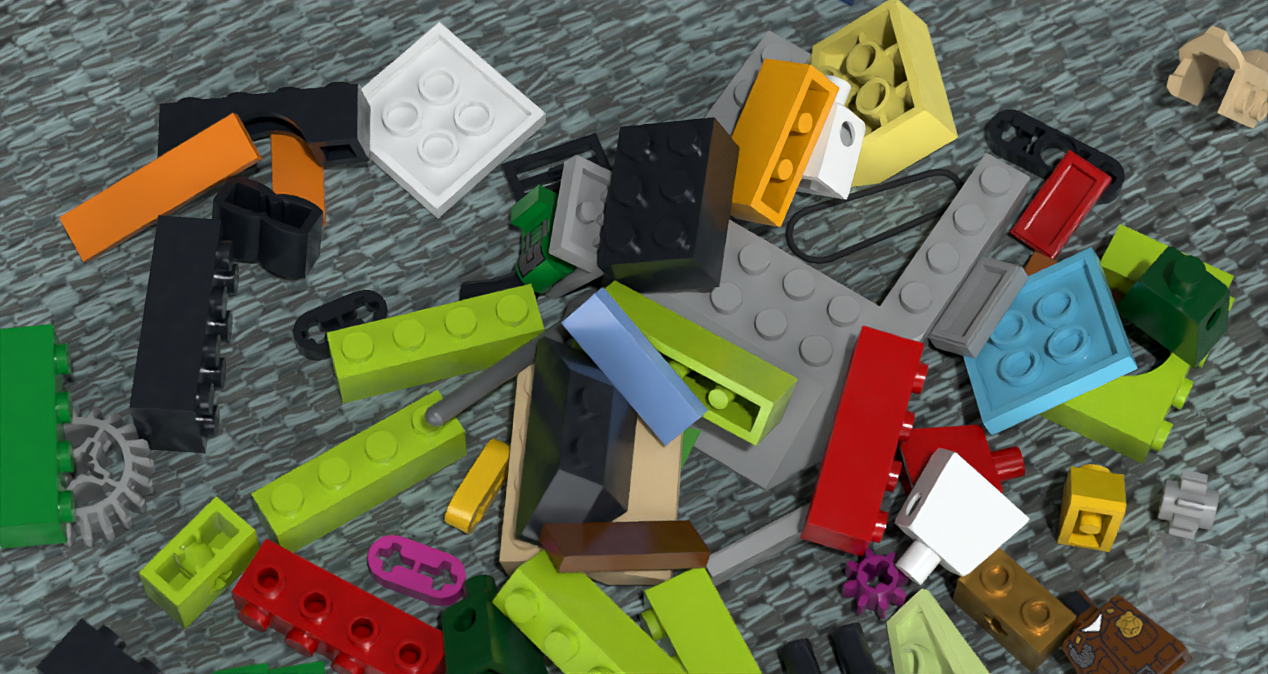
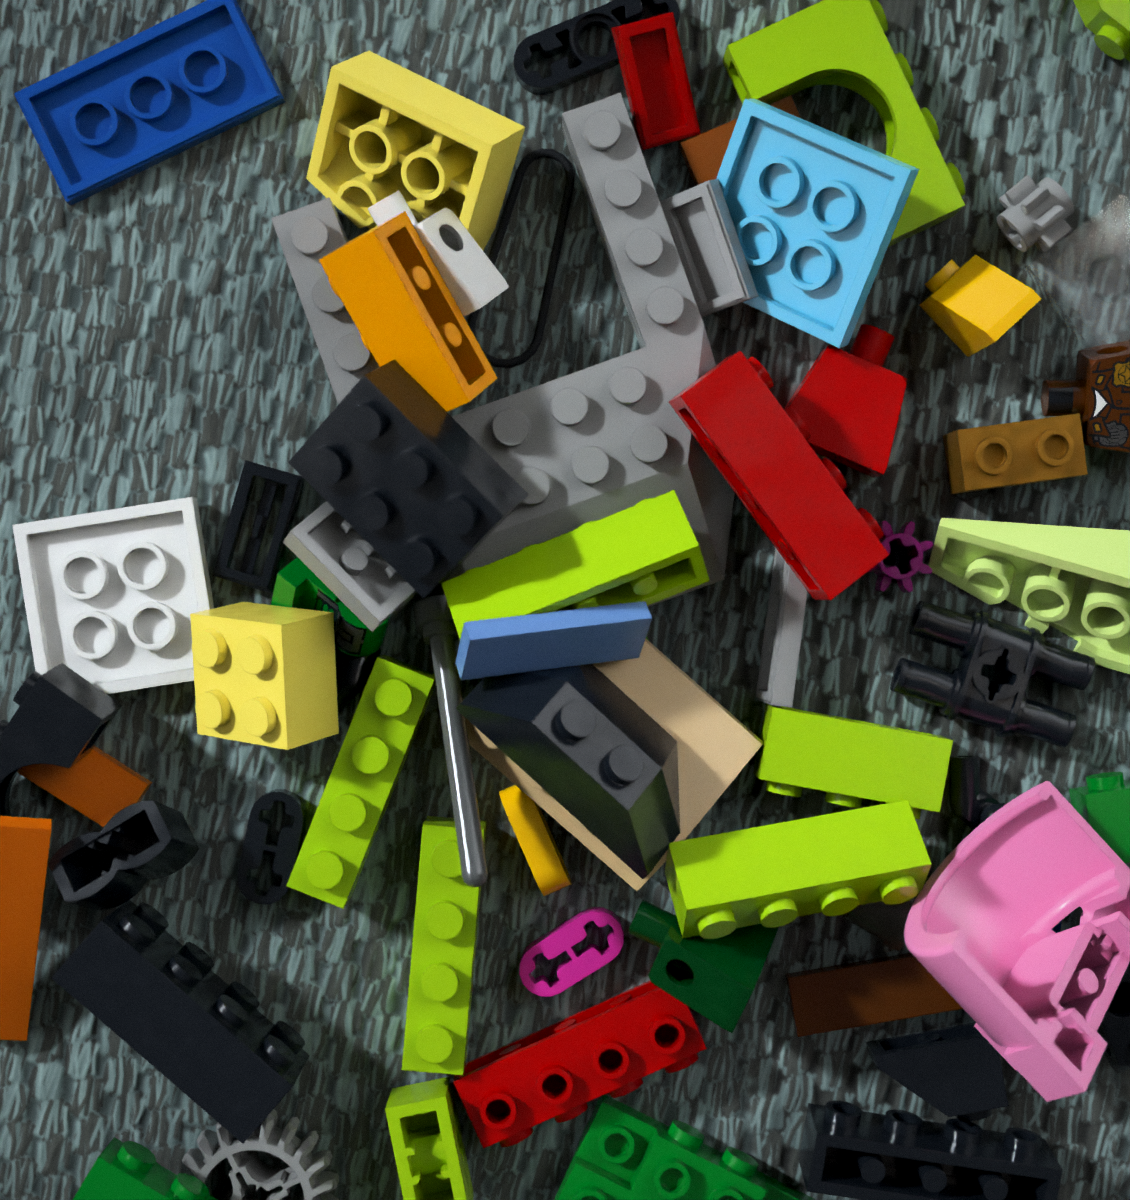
camera: 55 degrees left, 25 degrees up
(464, 222) = (265, 674): none -> light yellow brick
(624, 546) = (717, 778): reddish brown tile -> none
(953, 518) = (912, 451): white torso -> none
(1179, 305) = (869, 69): dark green torso -> none

